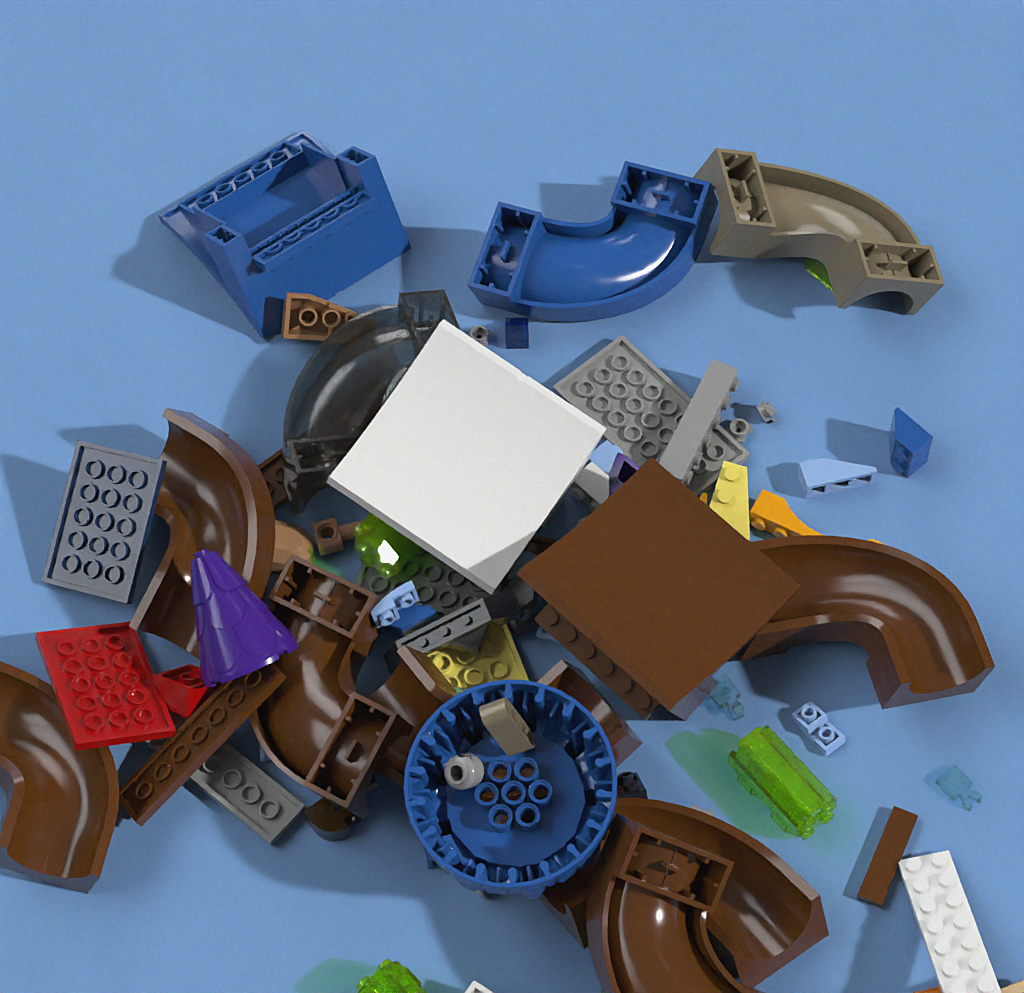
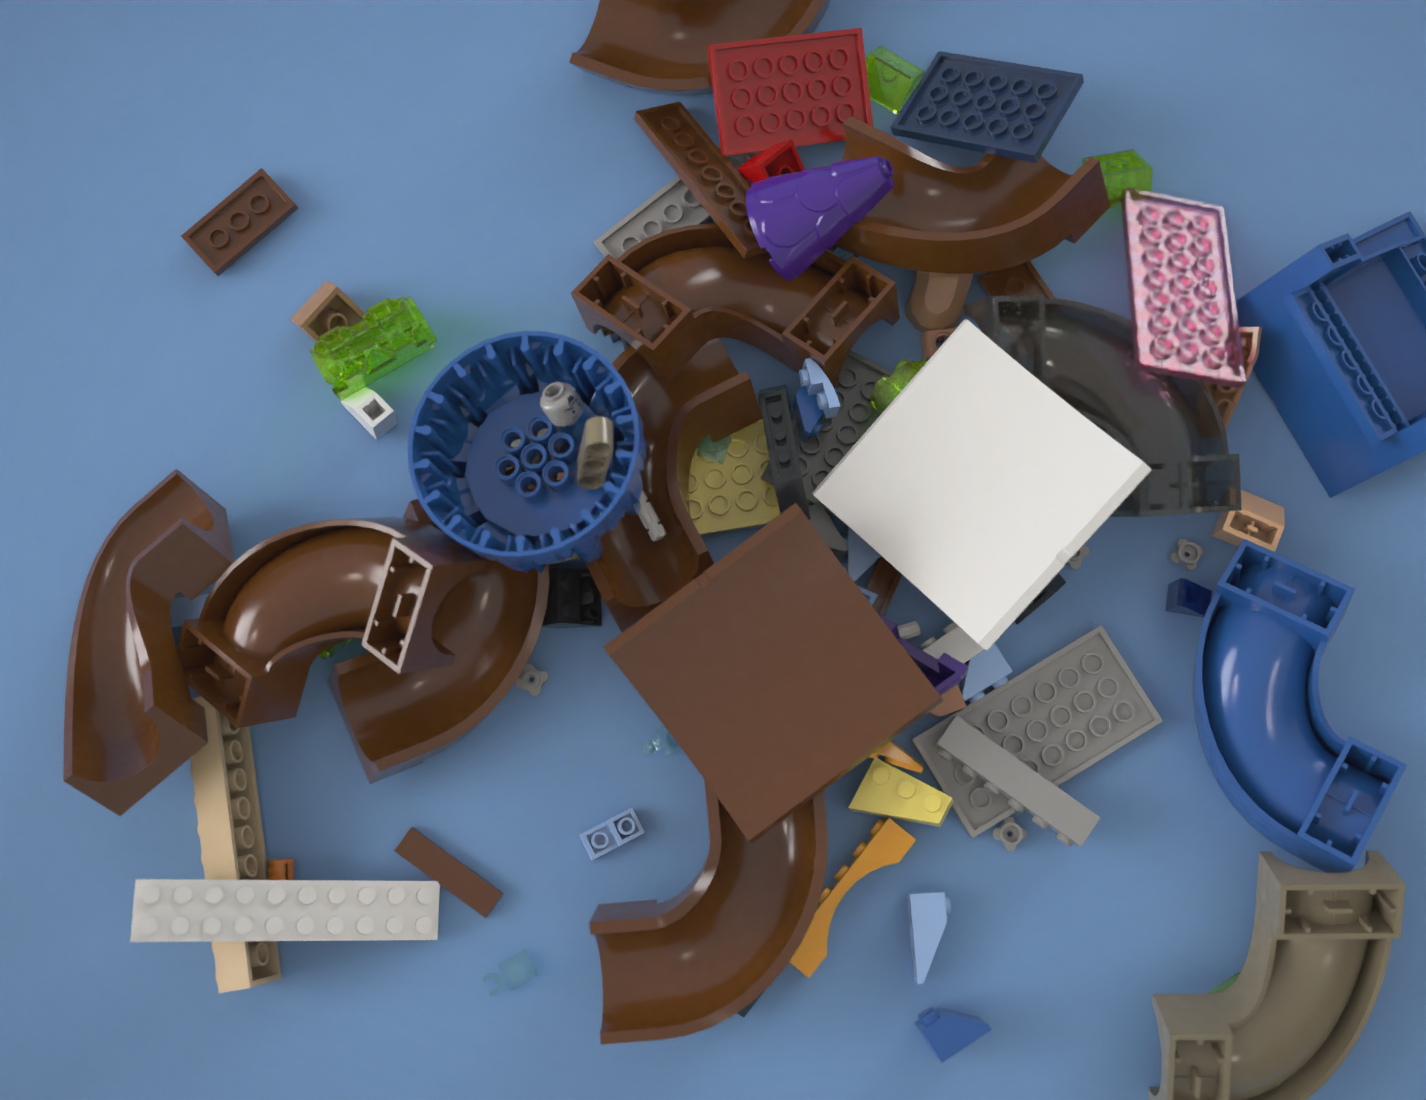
camera: 100 degrees right, 20 degrees up
(73, 610) = (891, 78): none -> clear neon green slope
(145, 425) = (1123, 170): none -> clear neon green slope
(256, 355) = (1181, 288): none -> clear pink plate
(454, 283) = (1256, 522): none -> light nougat slope
(766, 411) = (1029, 872): light grey plate -> none
(782, 782) = (541, 774): clear neon green brick -> none

